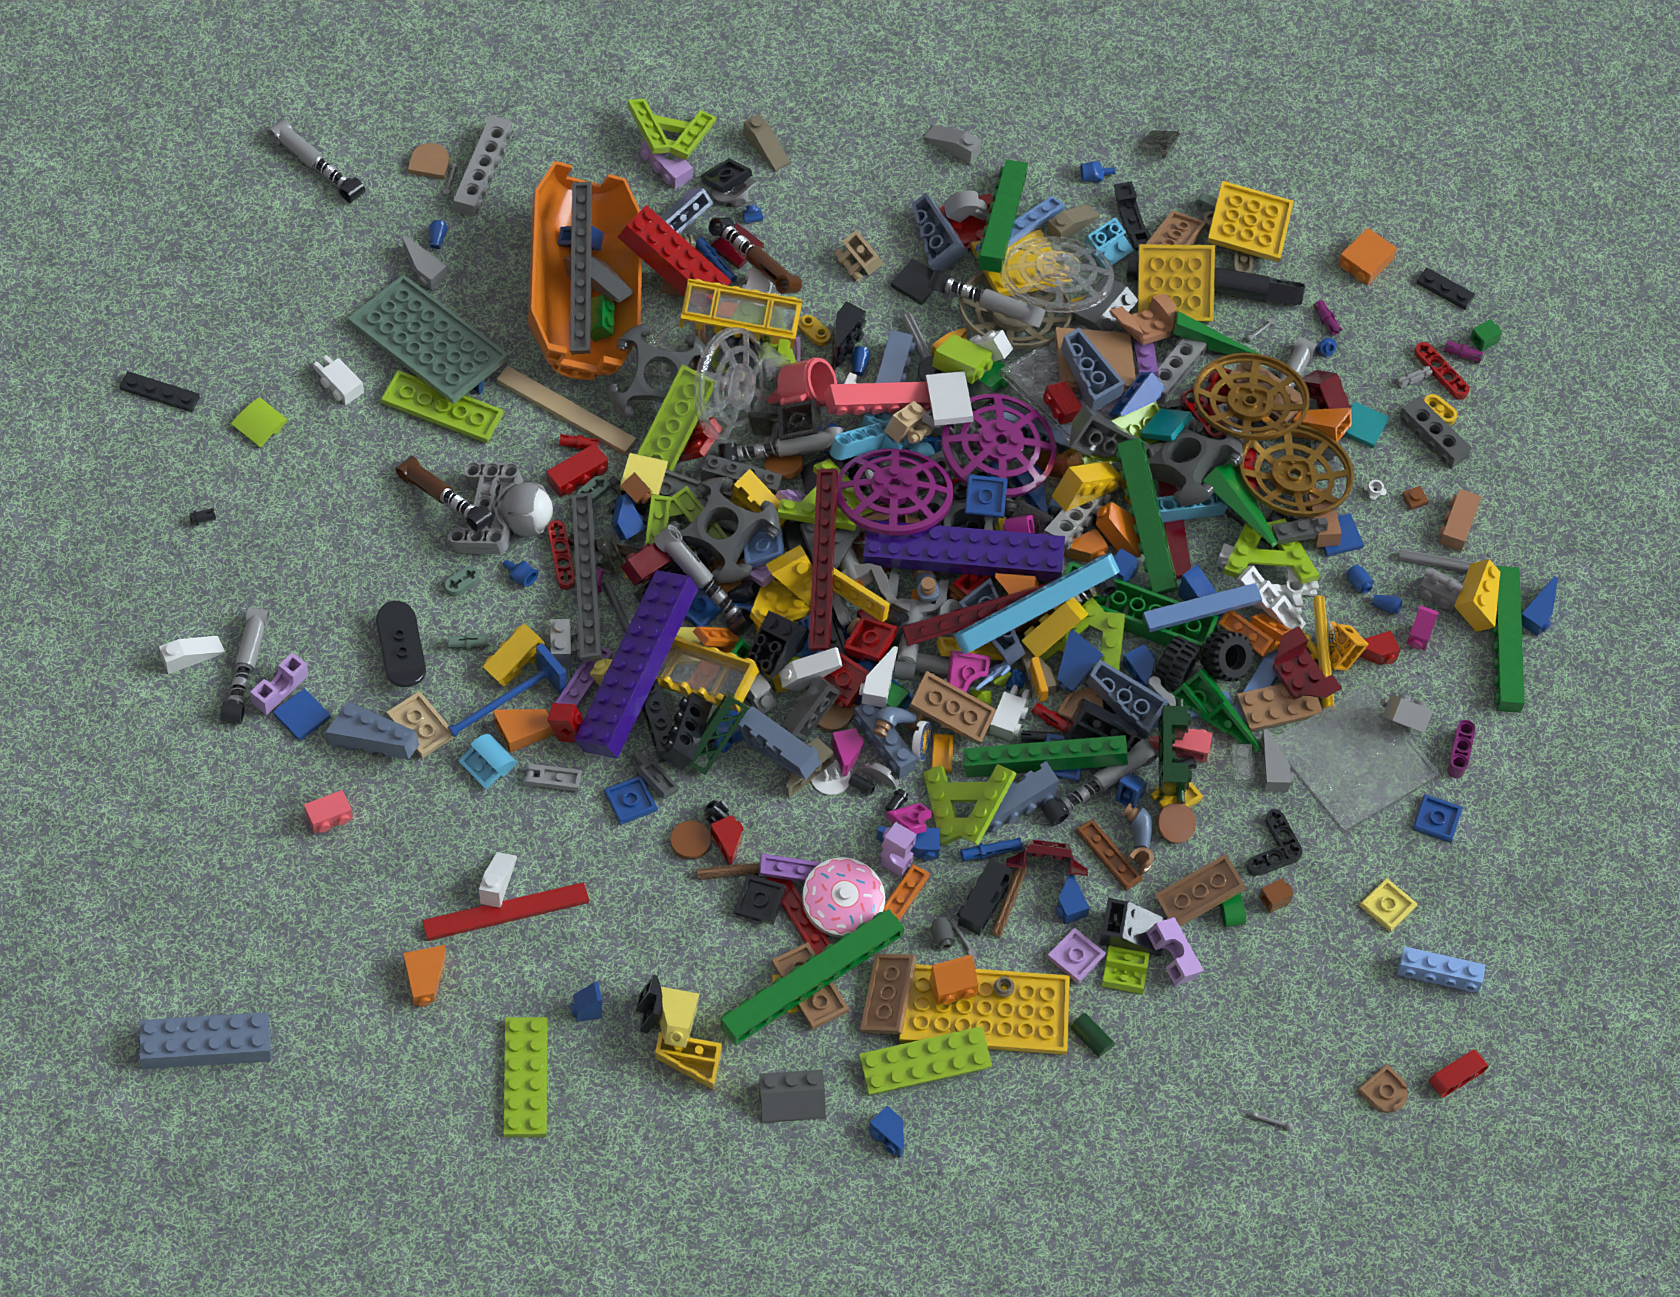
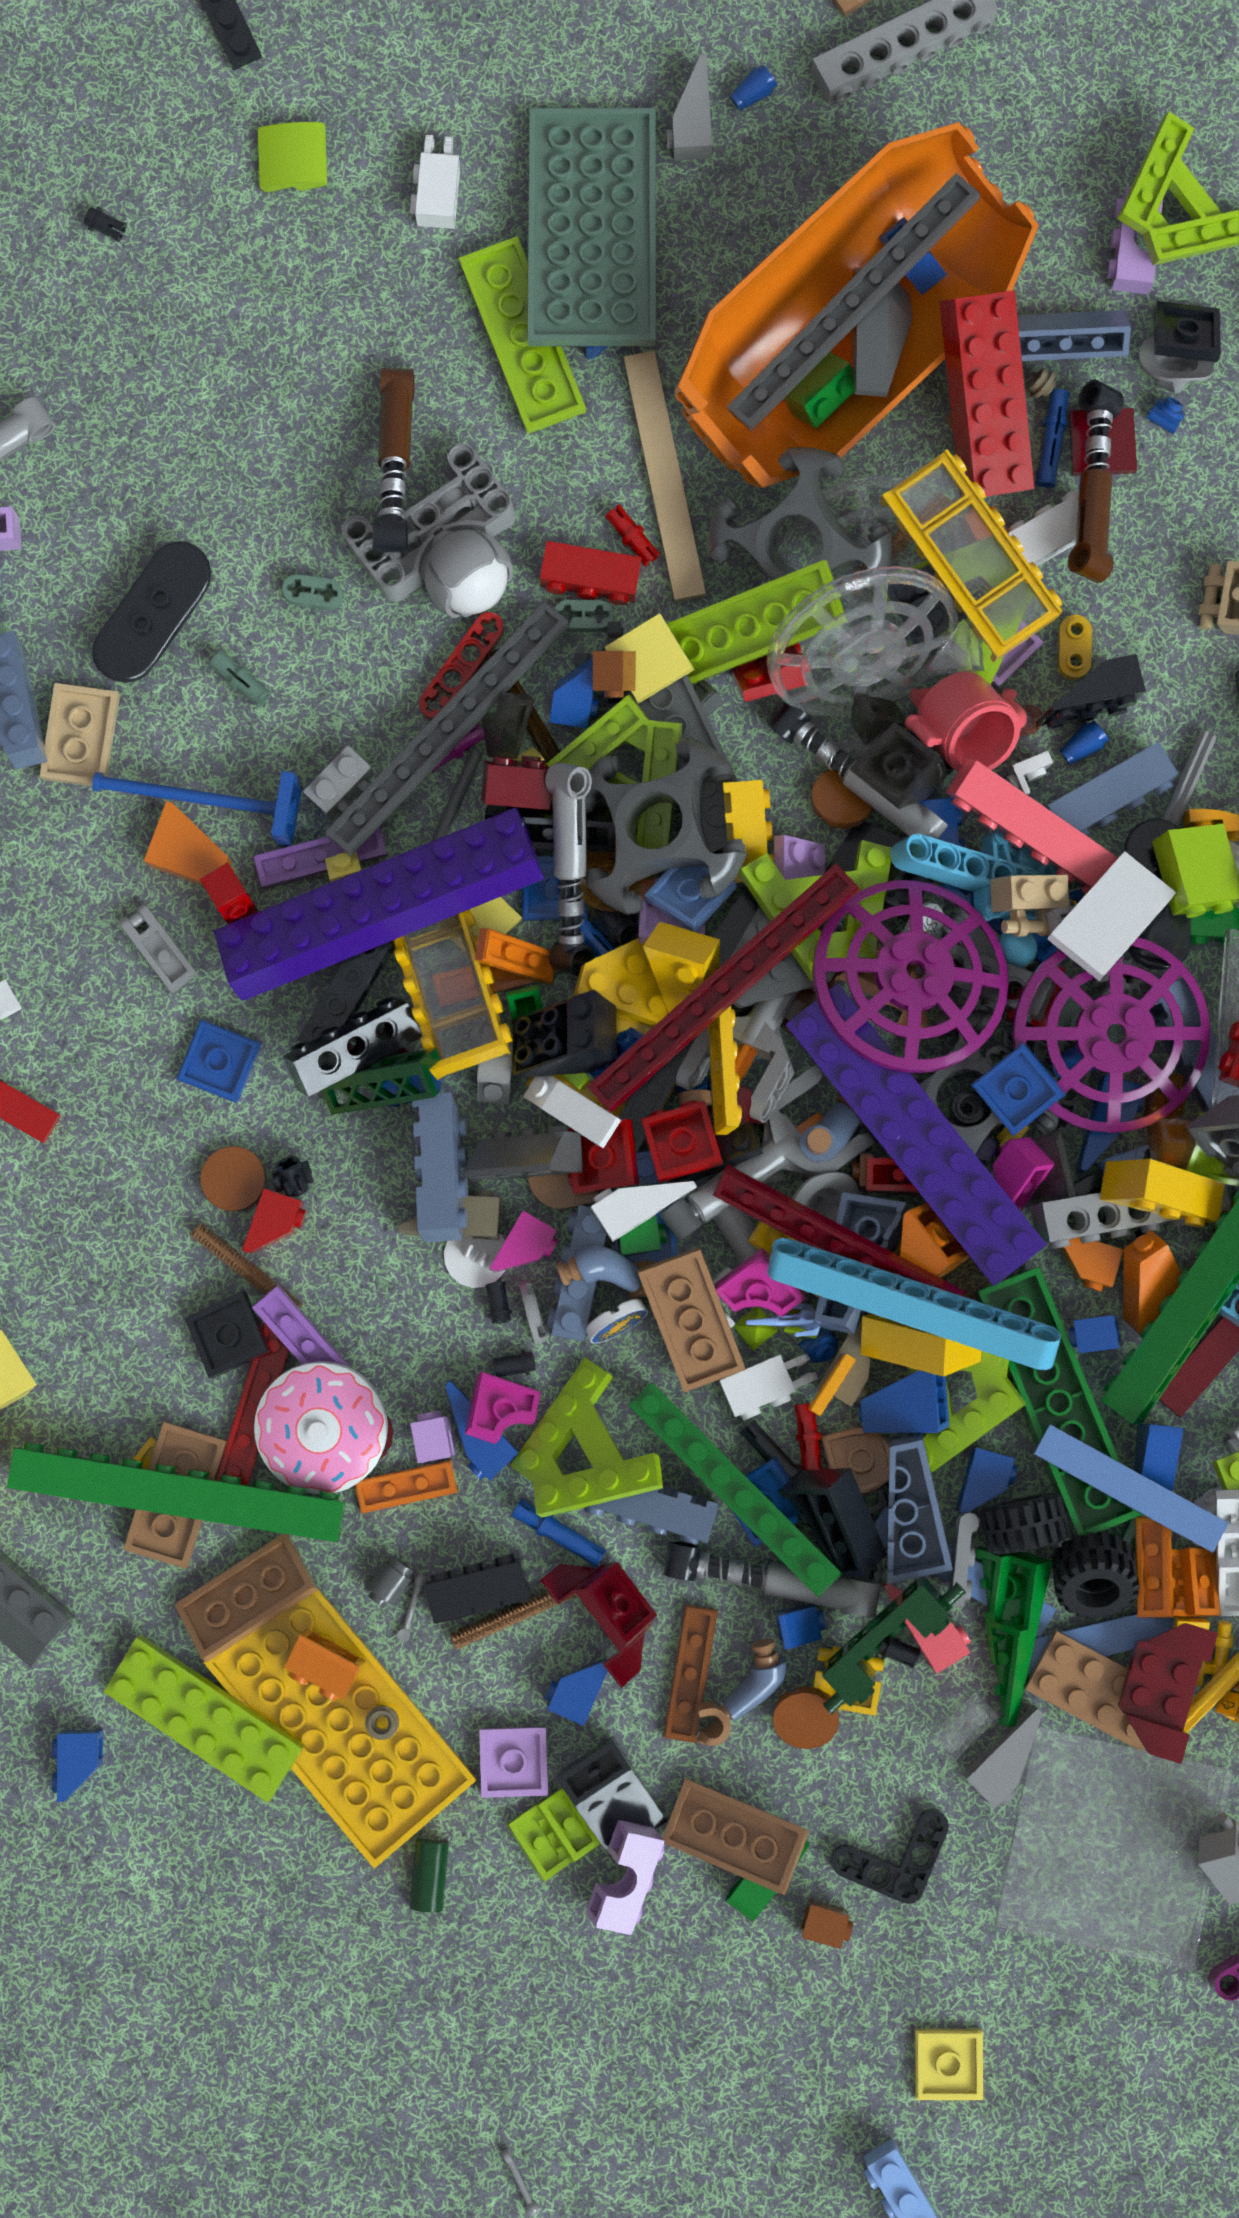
camera: 50 degrees right, 25 degrees up
(446, 191) = (828, 36): light grey hinge -> none
(487, 760) = (105, 856): medium azure brick -> none
(513, 655) = (268, 750): yellow wedge -> none
(521, 573) = (389, 647): blue piece -> none
(654, 775) = (270, 1069): dark grey hinge -> none
(721, 467) = (772, 766): dark grey brick -> none
(942, 751) = (634, 1353): light orange tile -> none
(1437, 818) = (1130, 2018): blue tile -> none

